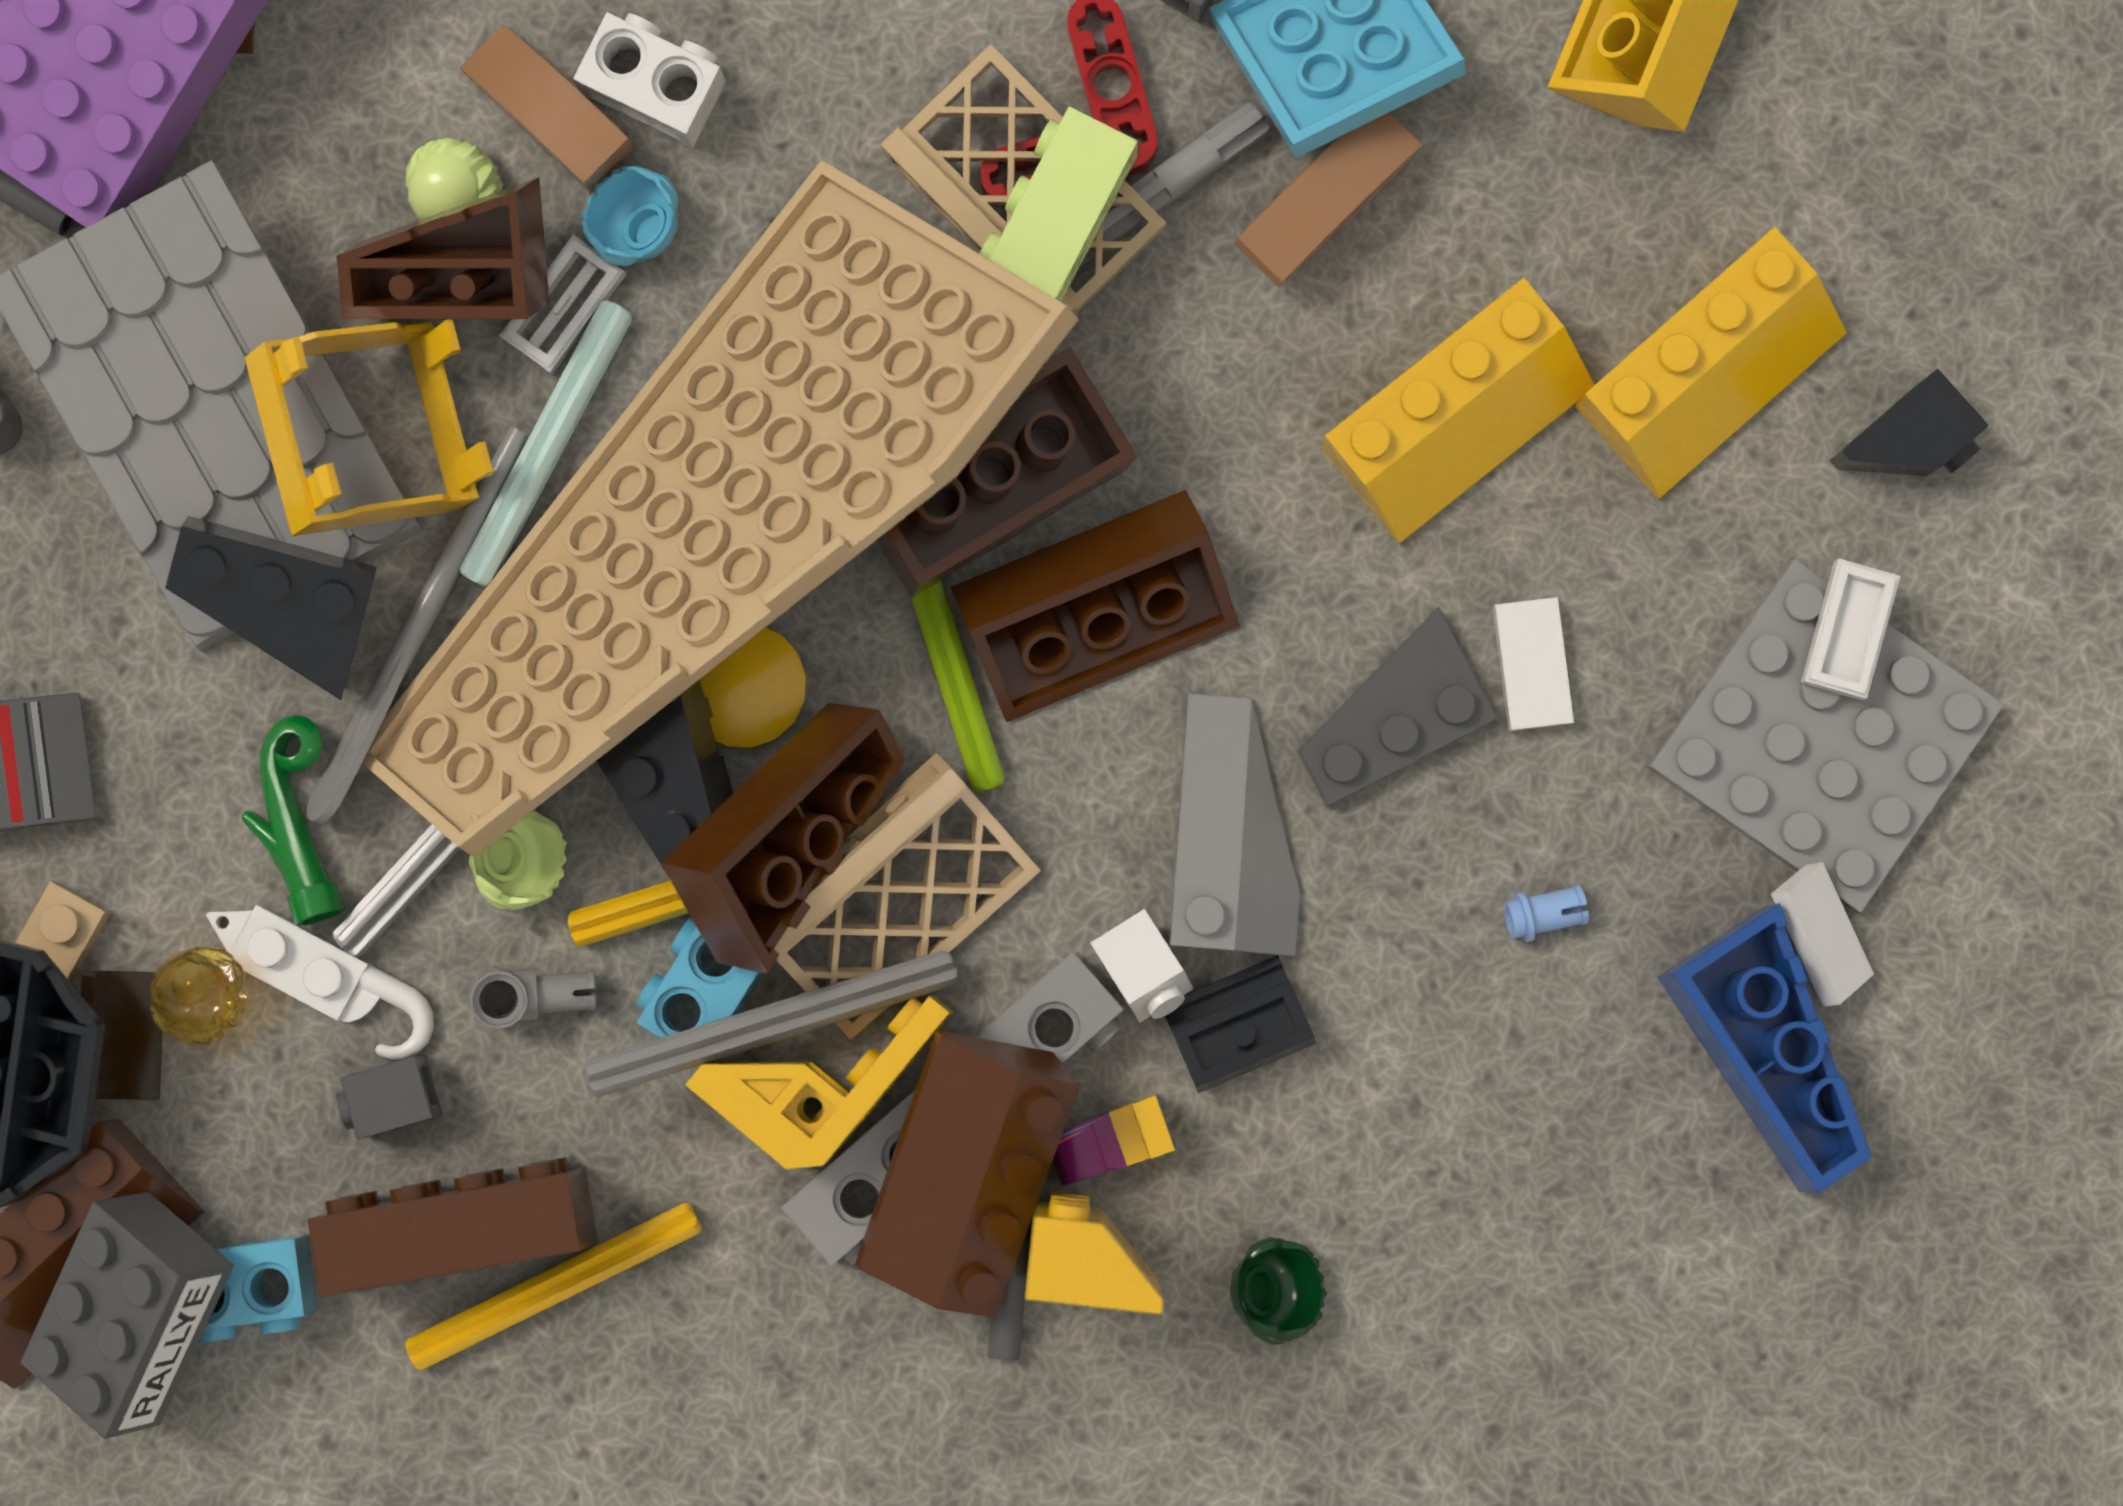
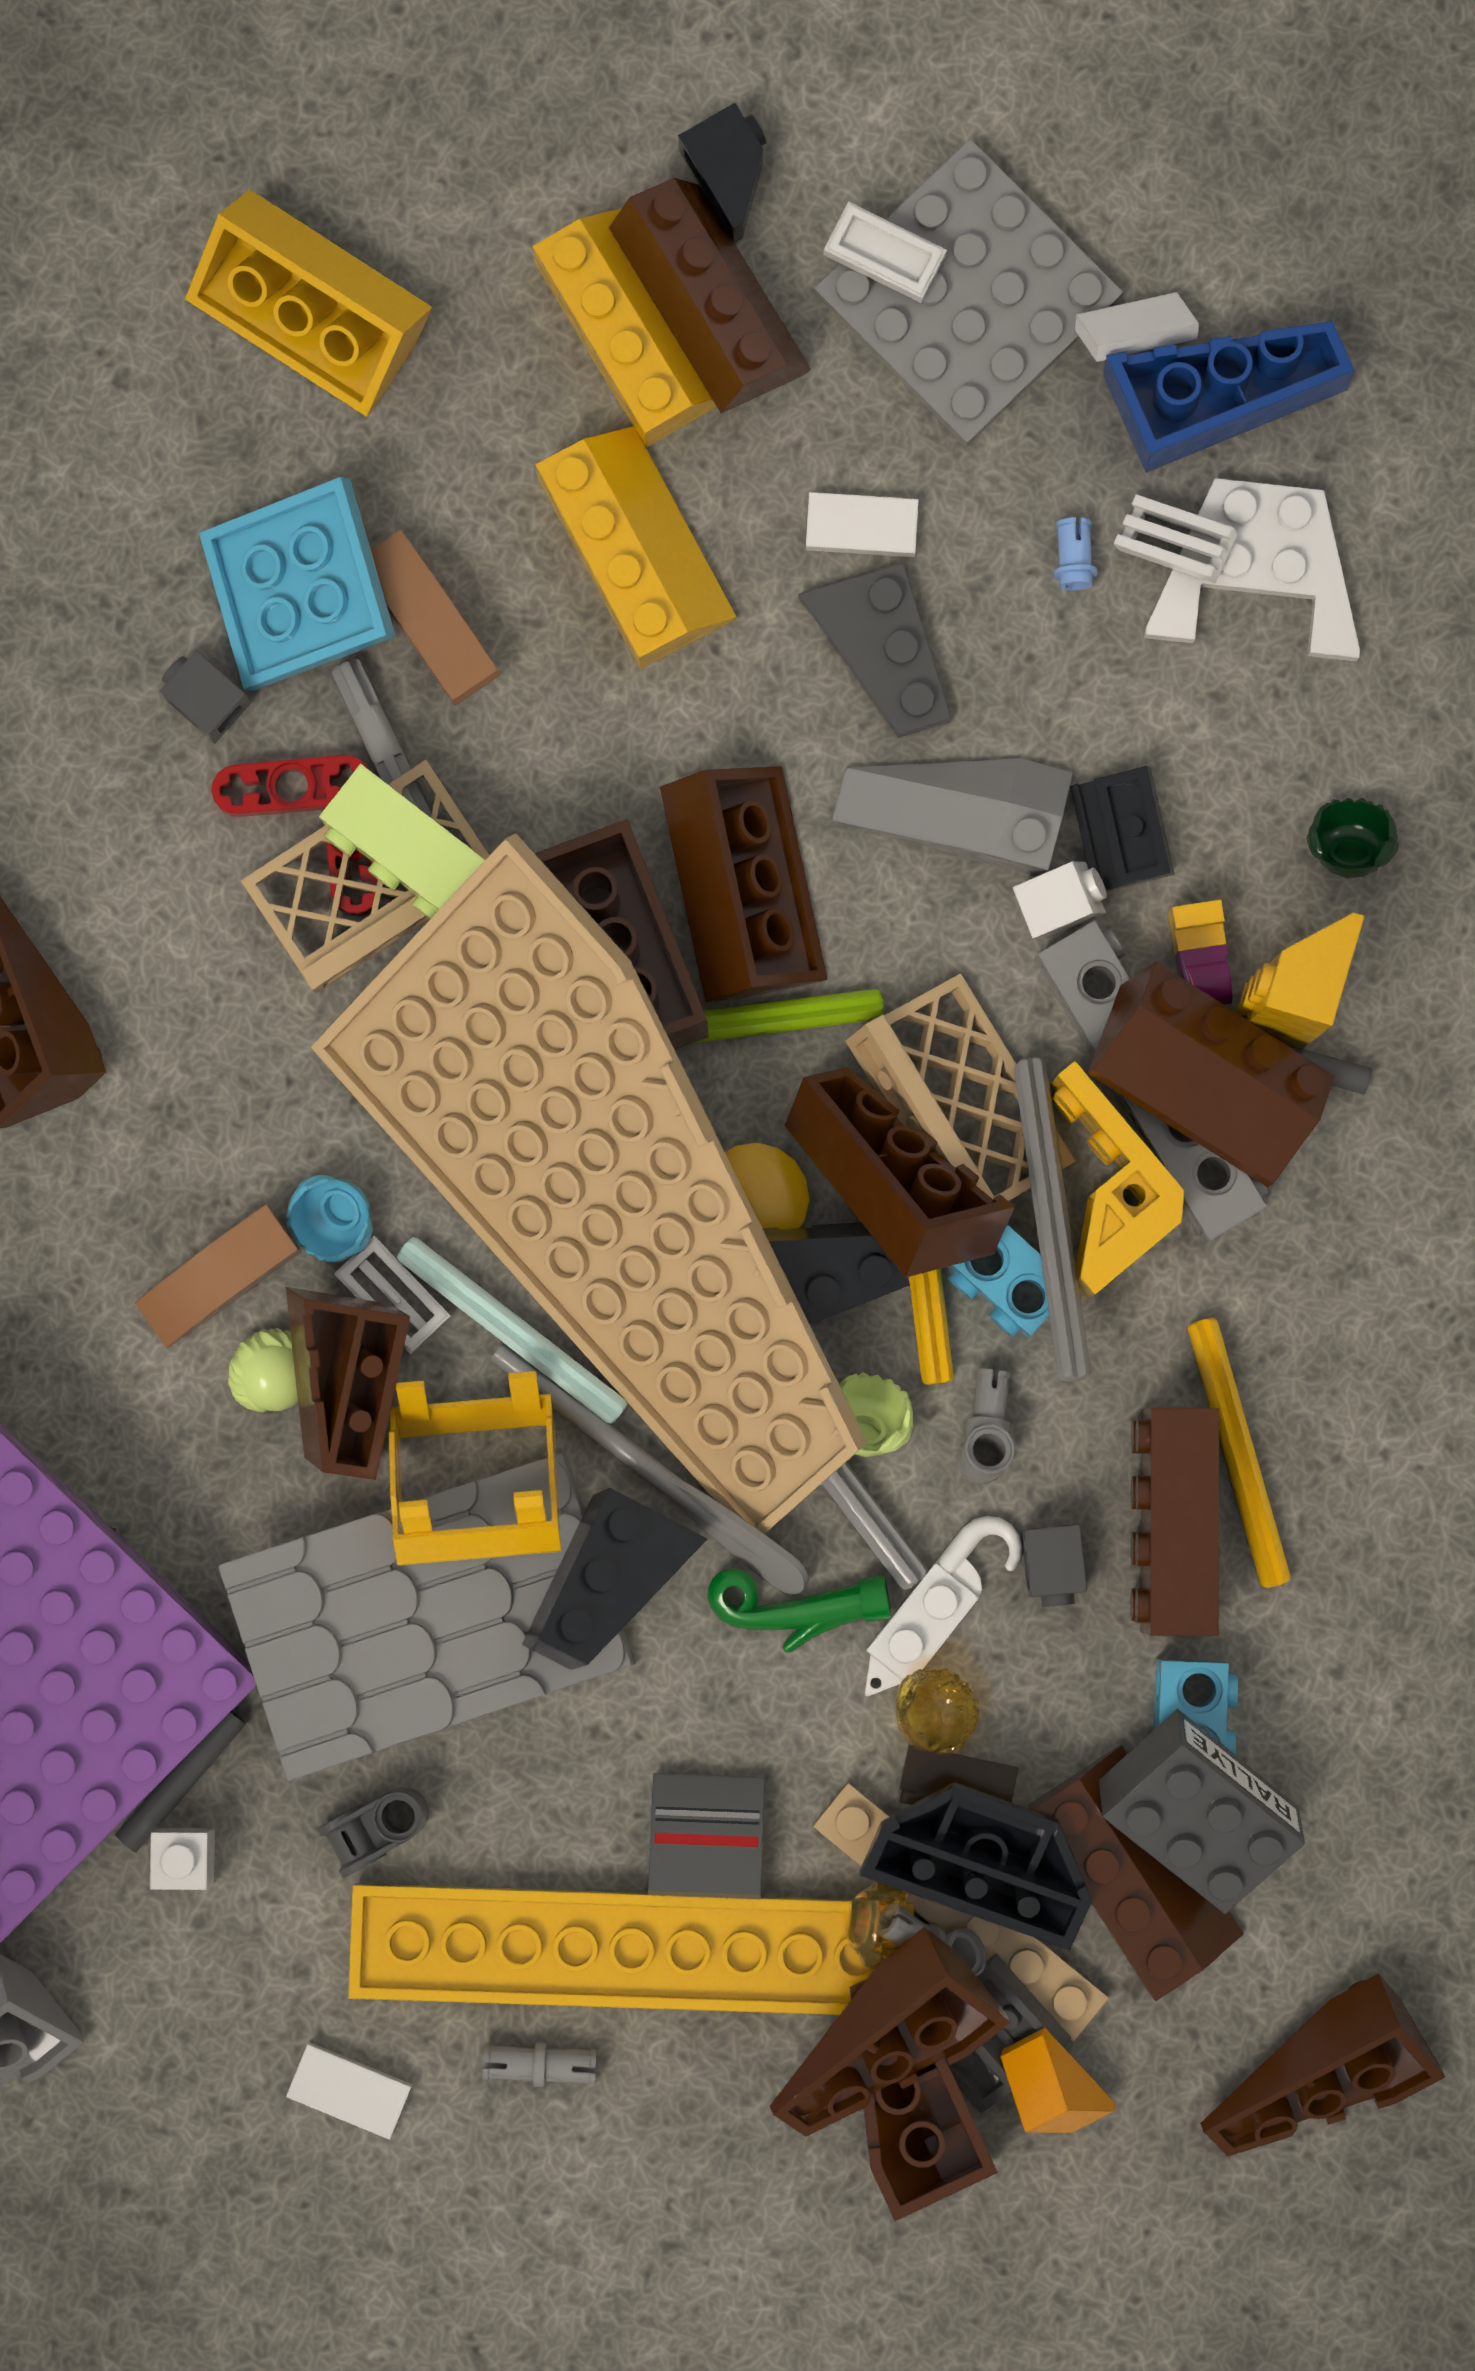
camera: 85 degrees left, 0 degrees up
(643, 90) = (223, 1189): white brick -> none
(1594, 976) = (1137, 524): none -> white tile
(1600, 1126) = (1279, 550): none -> white wing
(1763, 437) = (707, 293): none -> reddish brown slope

